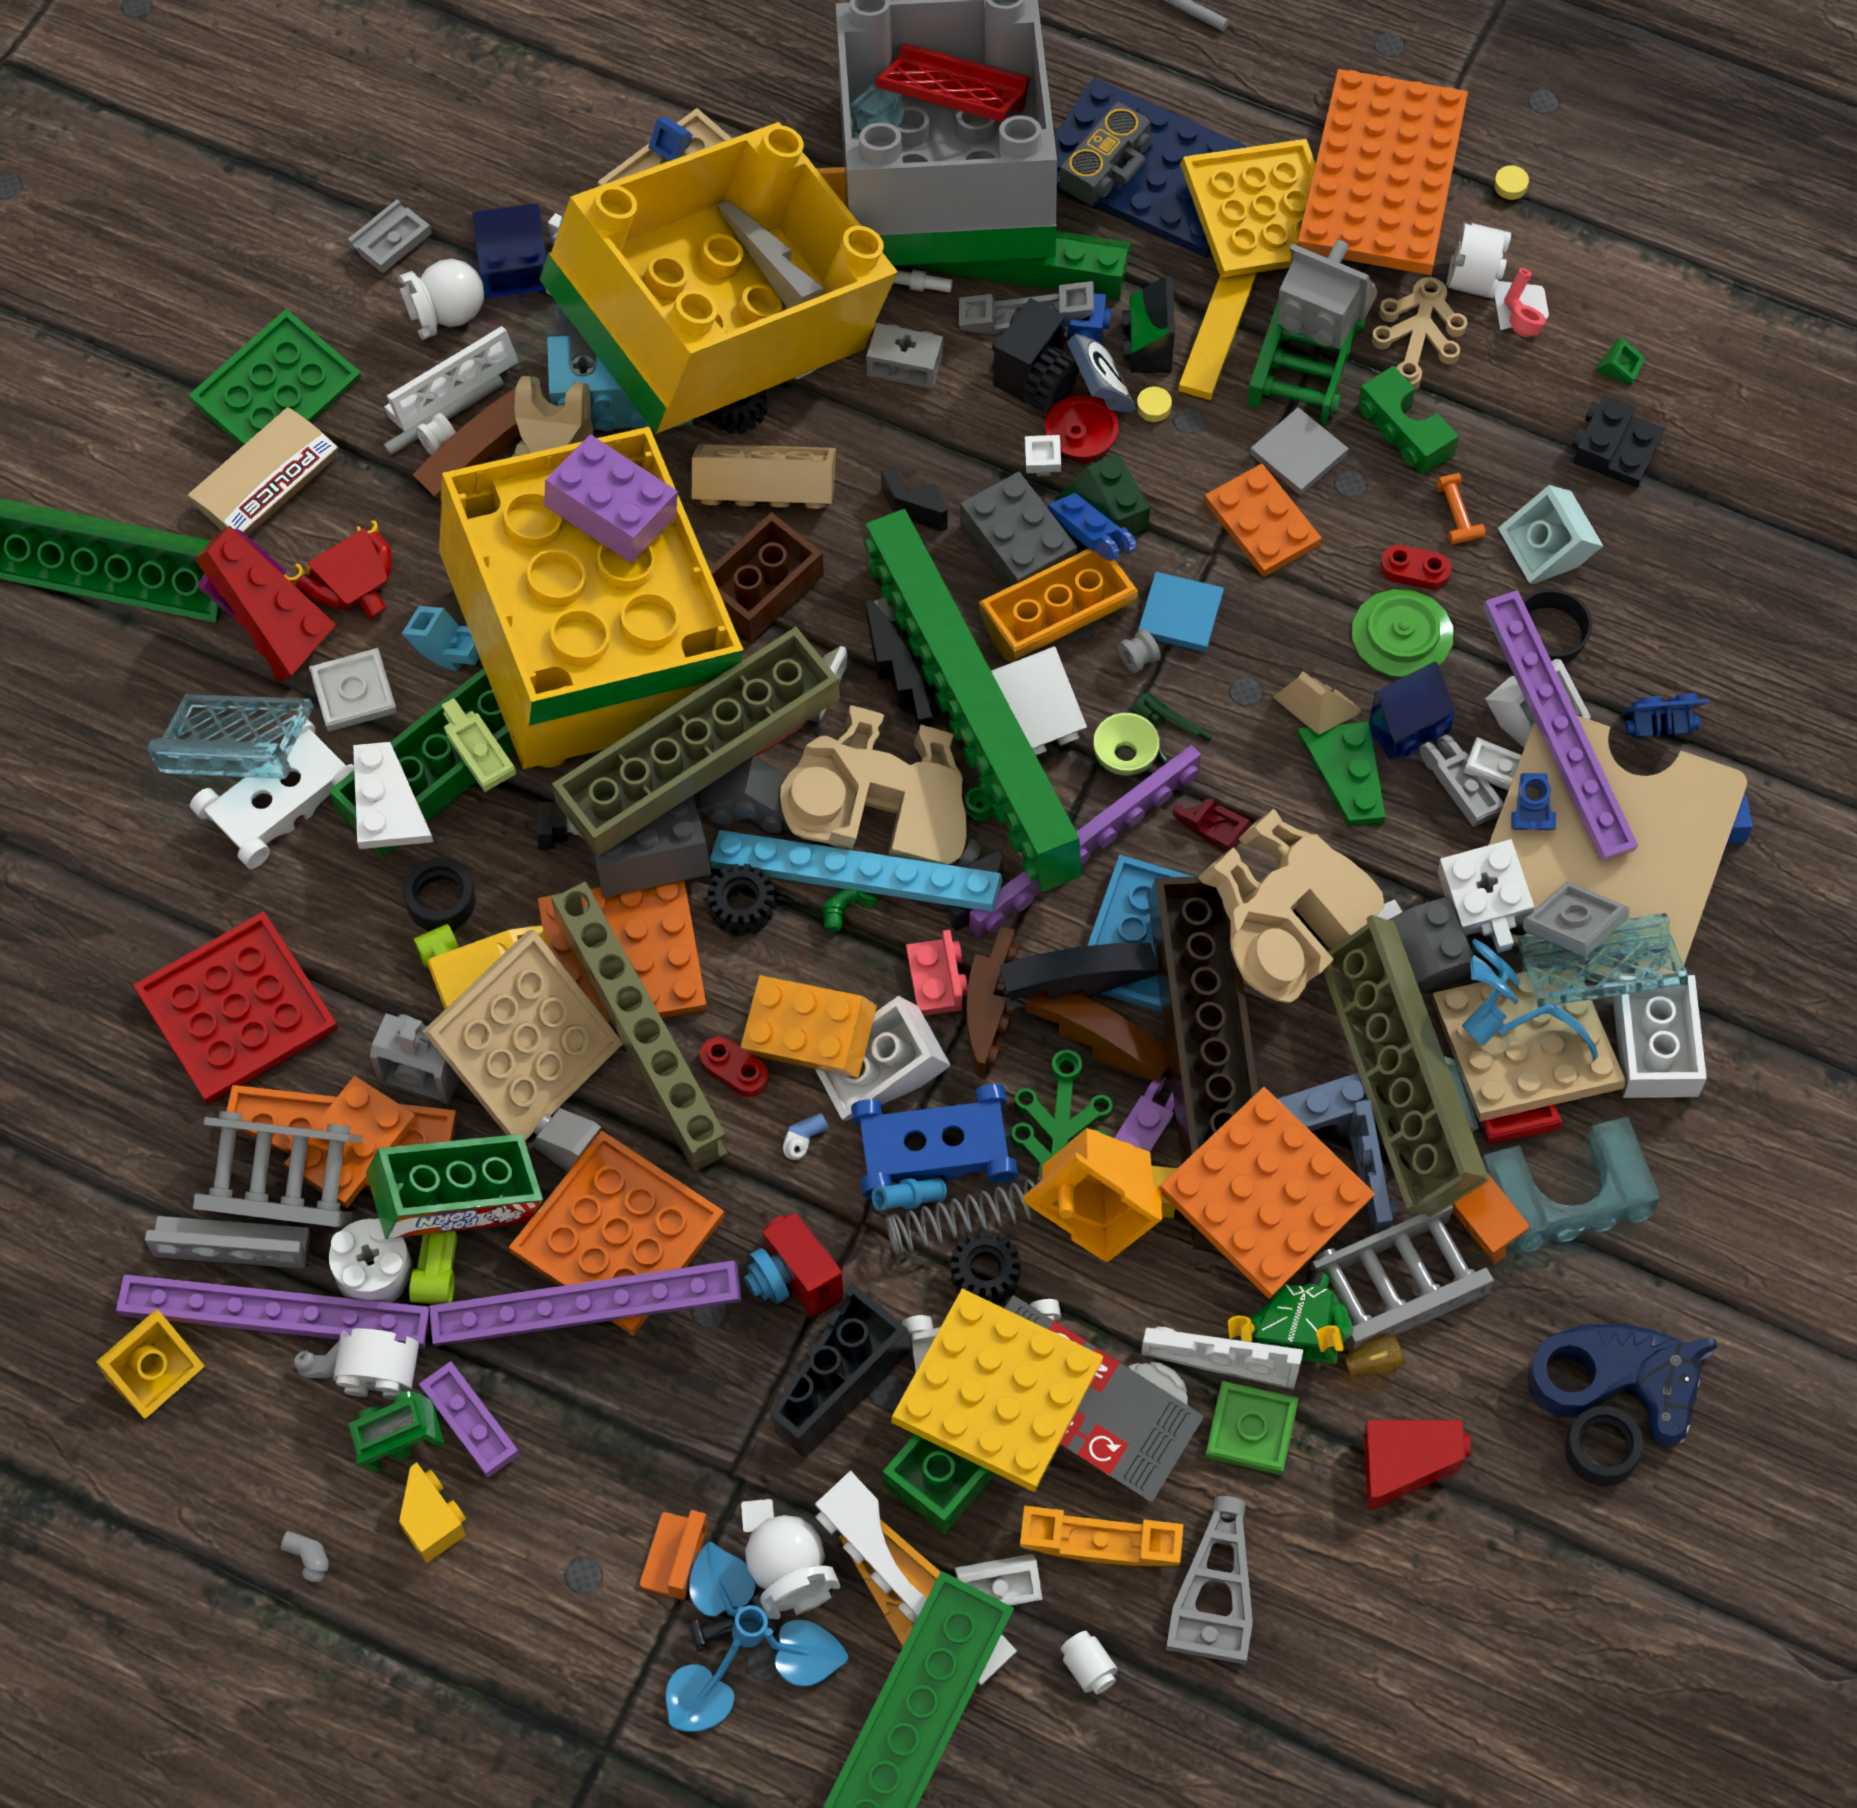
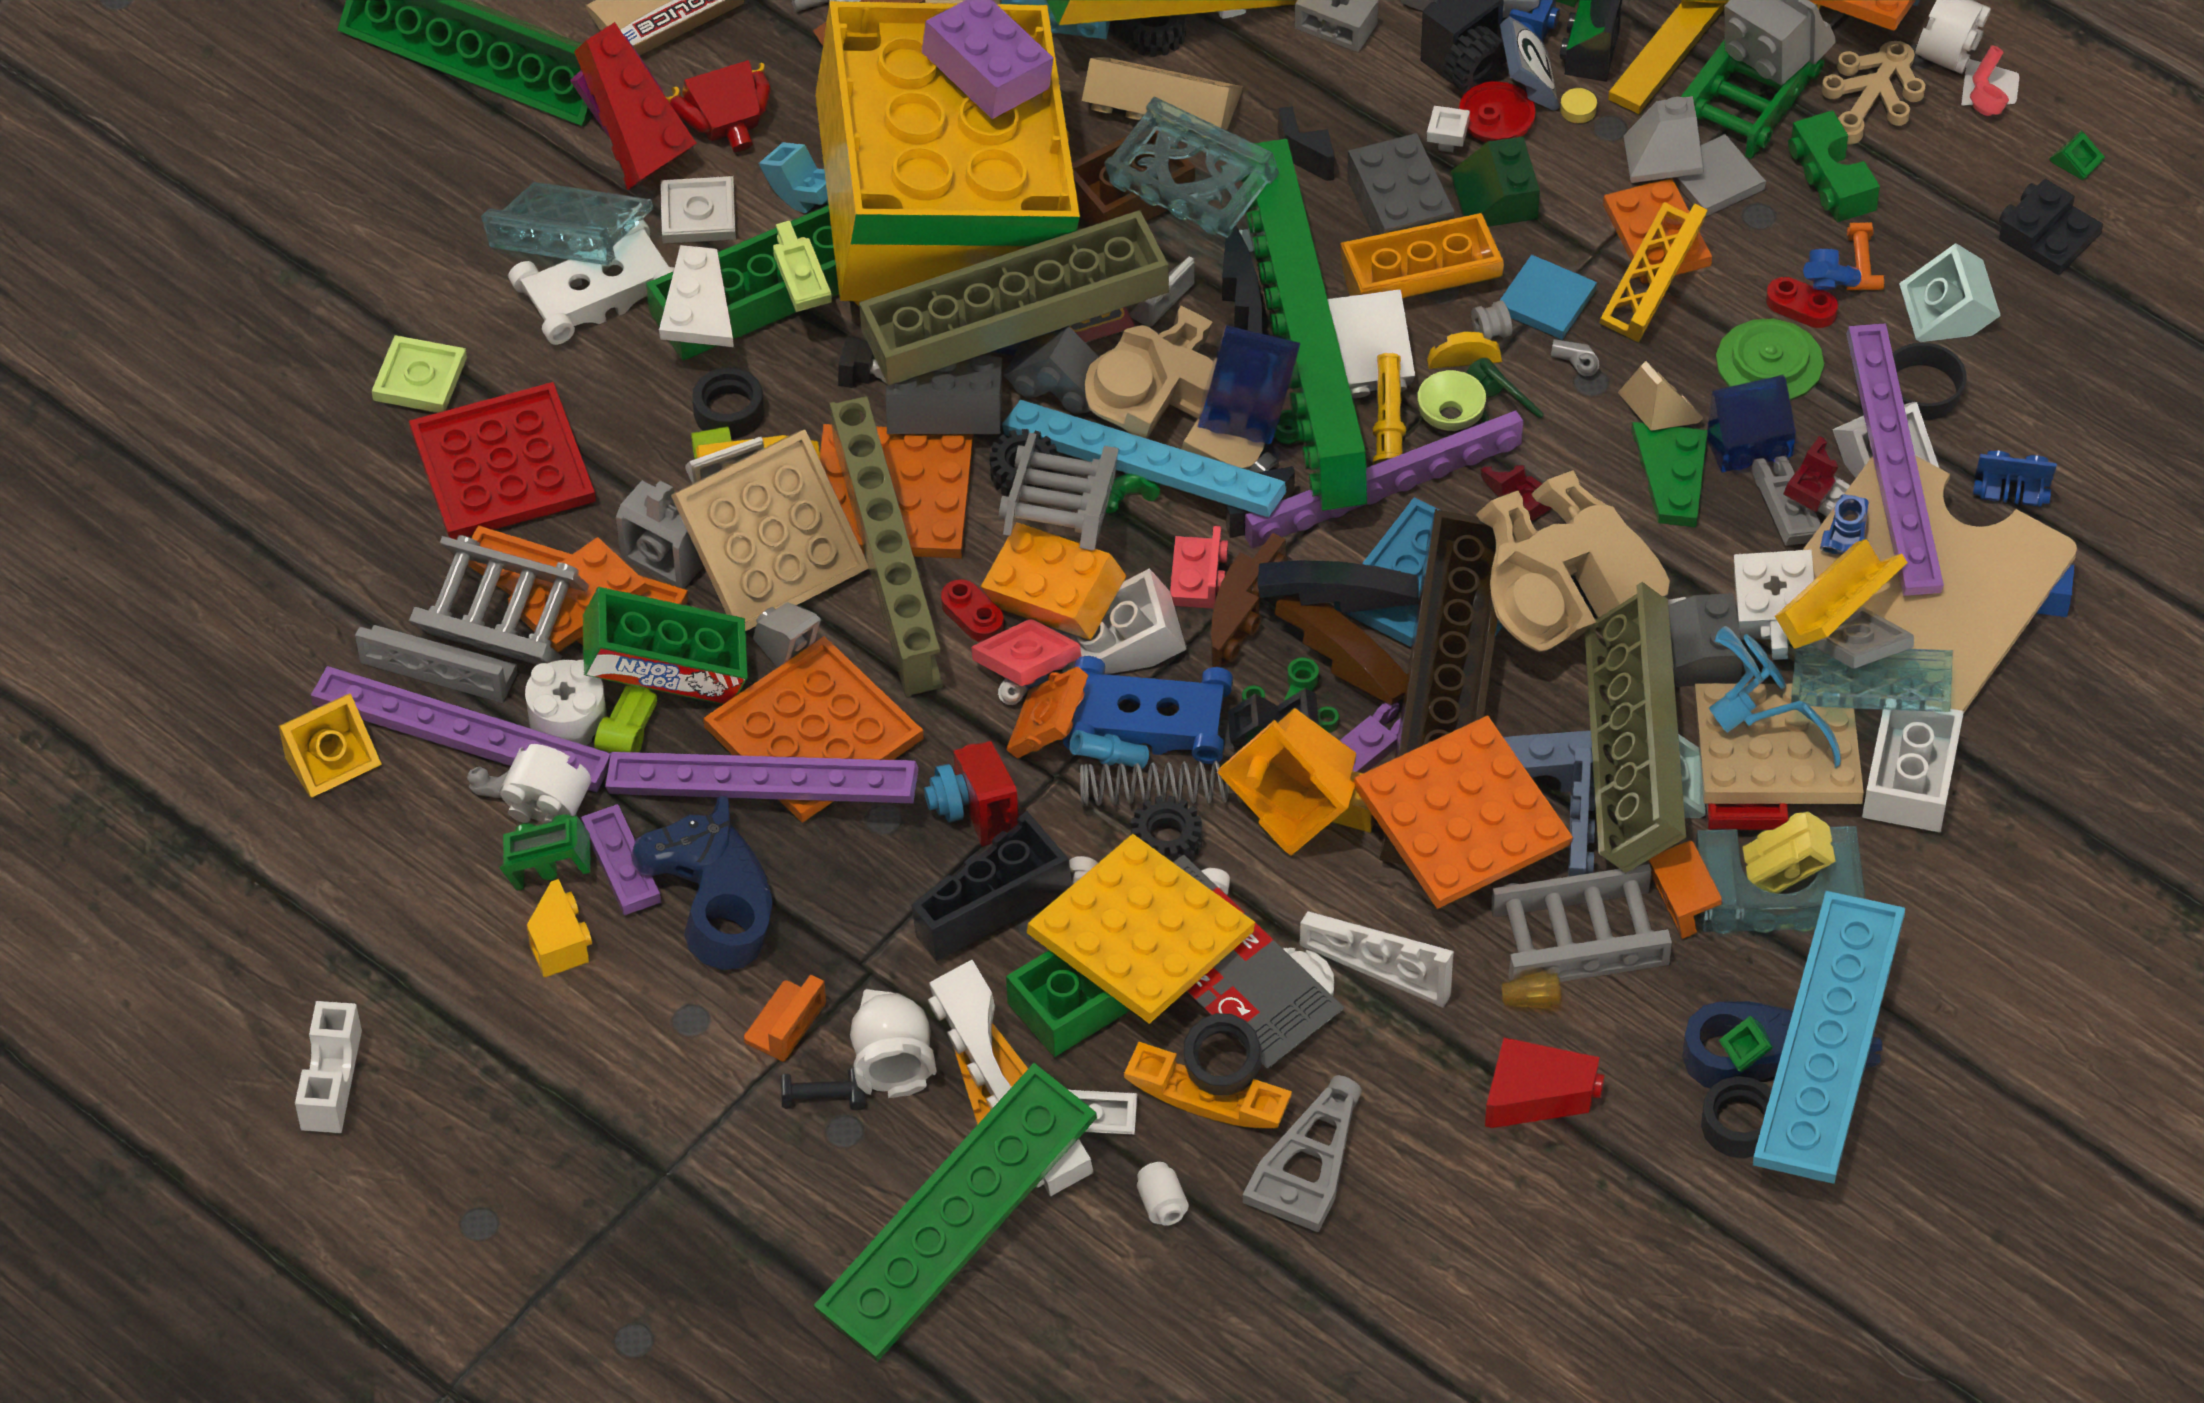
camera: 15 degrees right, 10 degrees down
(129, 930) = (419, 374): none -> yellowish green plate
(244, 1709) = (334, 1049): none -> white arch
(311, 1554) = (435, 942): light grey arm -> none
(460, 973) = (712, 463): none -> white slope
(584, 1424) = (728, 878): none -> dark blue animal
(718, 1585) = (827, 1053): dark azure plant -> none
(801, 1105) = (1026, 652): none -> coral plate
(802, 519) = (1191, 199): none -> clear light blue fence
(825, 921) = (1090, 506): none -> light grey fence
(840, 1167) = (1048, 712): none -> orange plate
(943, 786) = (1248, 385): none -> clear blue slope
(1049, 1127) = (1257, 713): none -> black slope
(1077, 787) = (1389, 427): none -> yellow pin
(1091, 527) = (1474, 196): blue hinge -> none
(1121, 686) = (1463, 350): none -> yellow tile
(1133, 1484) = (1213, 1025): none -> black tyre
(1228, 667) = (1578, 354): none -> light grey arm
(1247, 430) = (1664, 142): none -> light grey slope
(1252, 1428) = (1390, 1029): bright green tile -> none
(1288, 569) = (1665, 271): none -> yellow fence
(1300, 1318) = (1473, 933): green torso -> none
(1435, 534) = (1827, 273): none -> blue plate
(1485, 756) = (1814, 477): none -> dark red slope
(1547, 880) = (1836, 594): none -> yellow fence
(1575, 1159) = (1789, 853): none -> light yellow brick
(1596, 1376) = (1746, 1043): none -> green slope
(1672, 1354) = (1829, 1037): none -> medium azure plate

